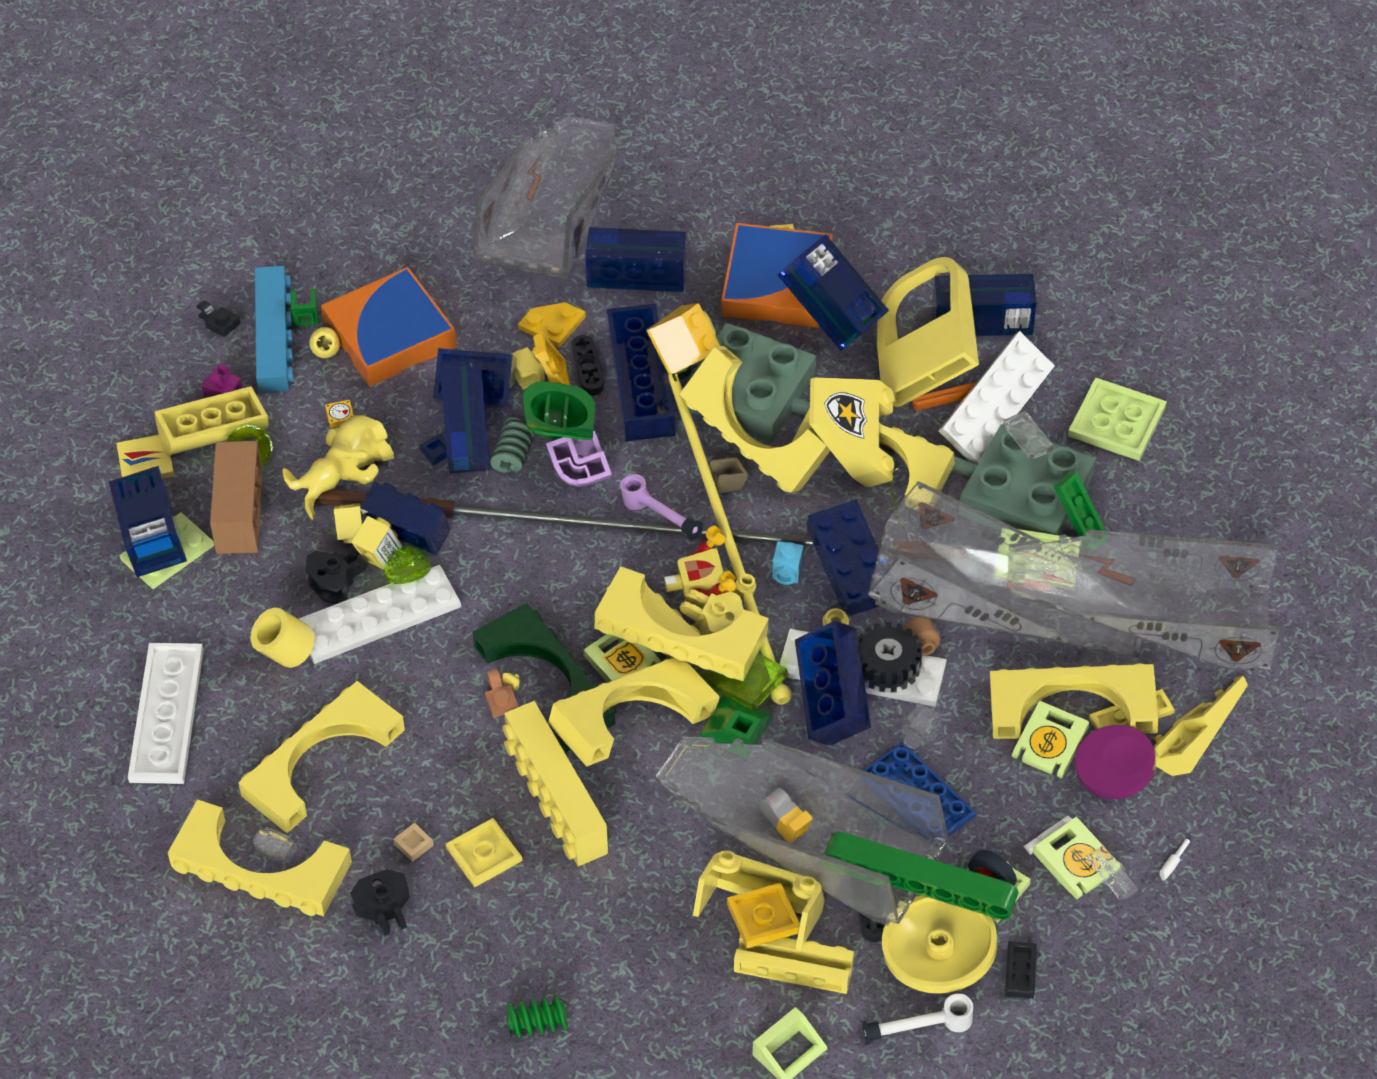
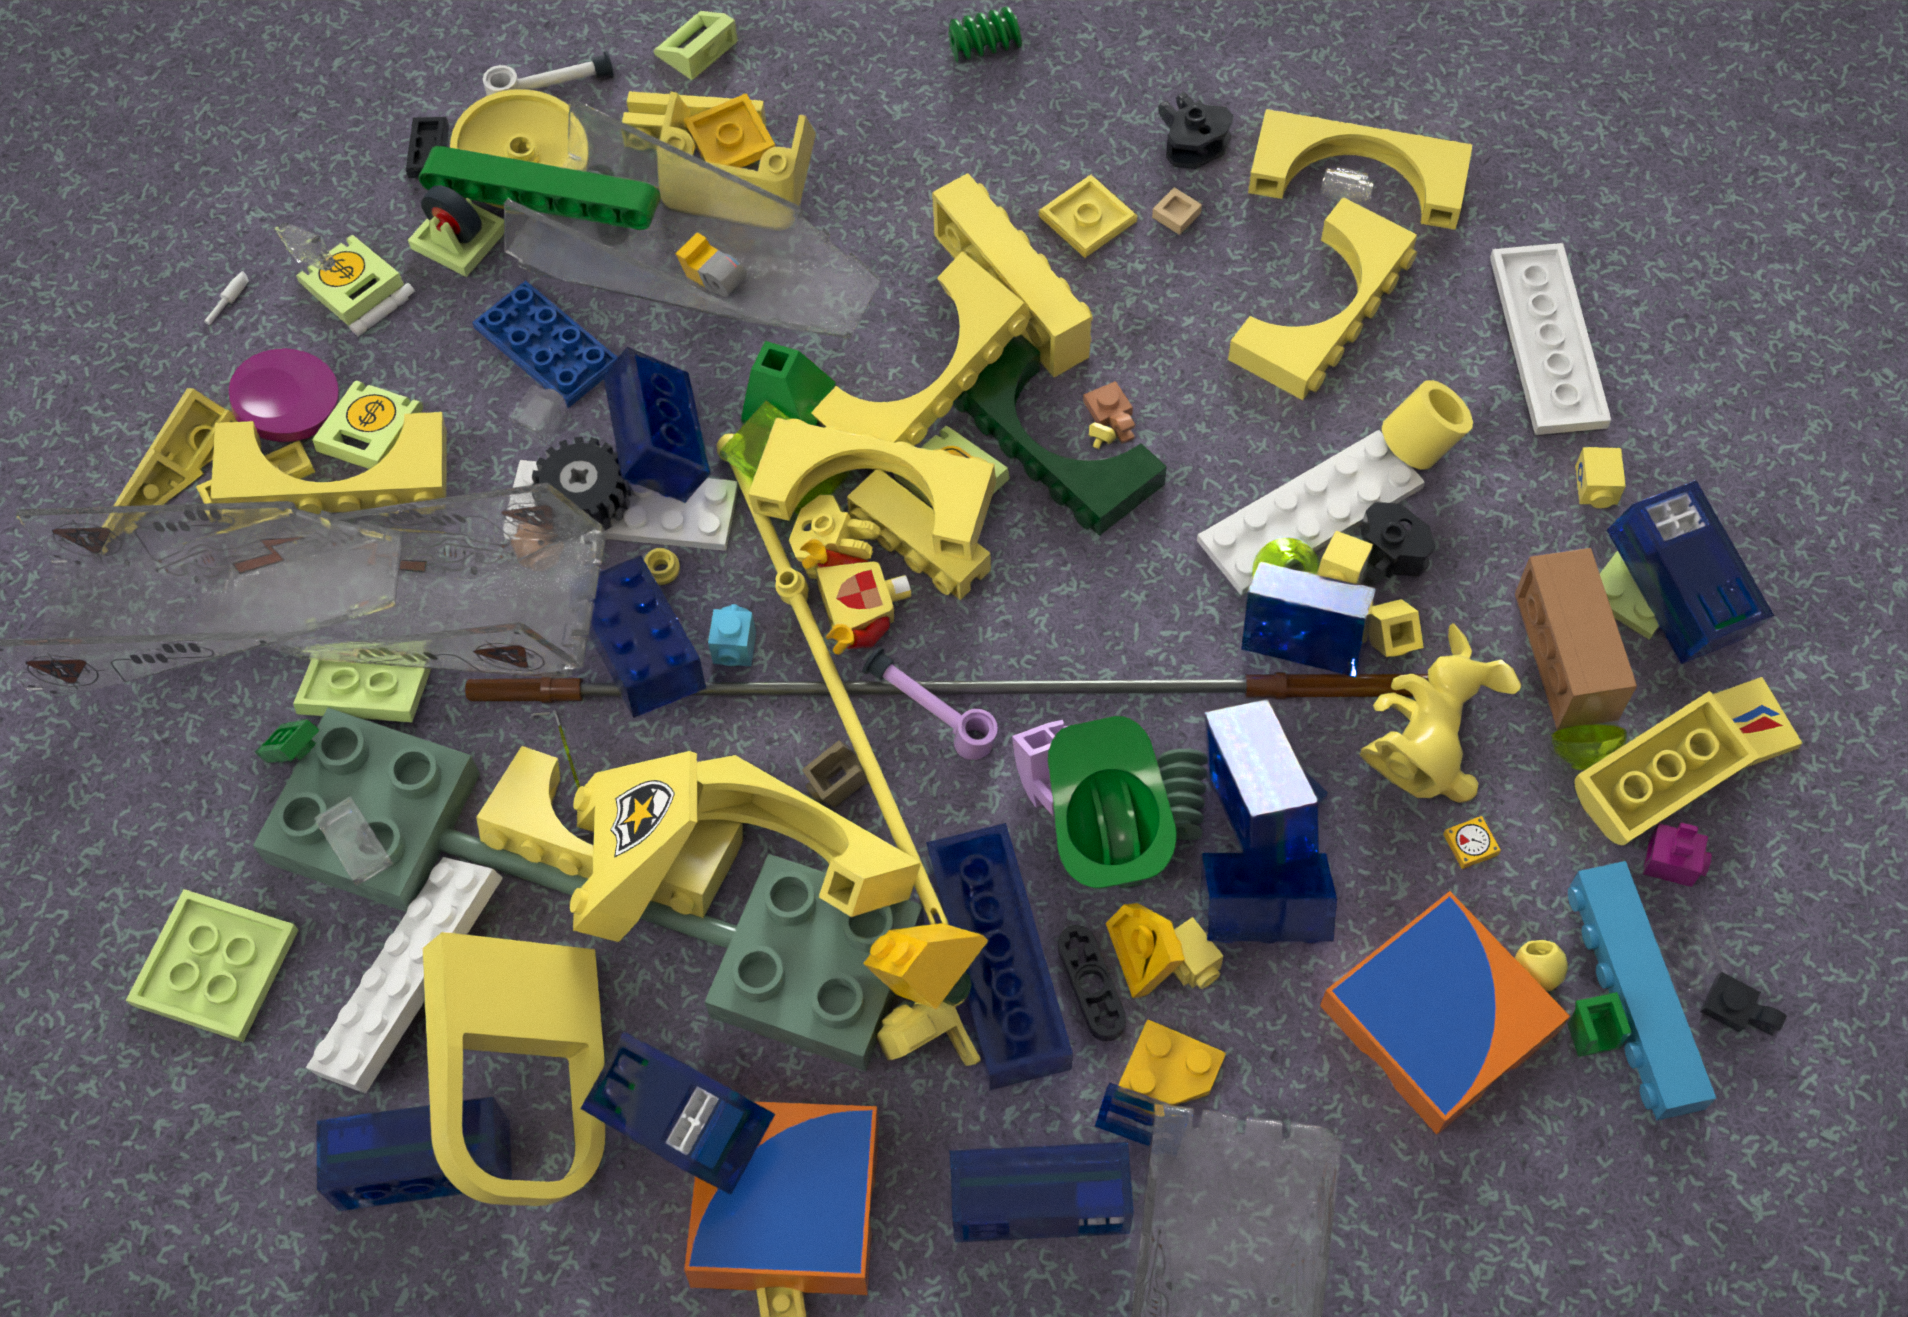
camera: 175 degrees right, 10 degrees up
(172, 608) = (1600, 476): none -> light yellow brick
(572, 298) = (1130, 1097): none -> clear blue tile

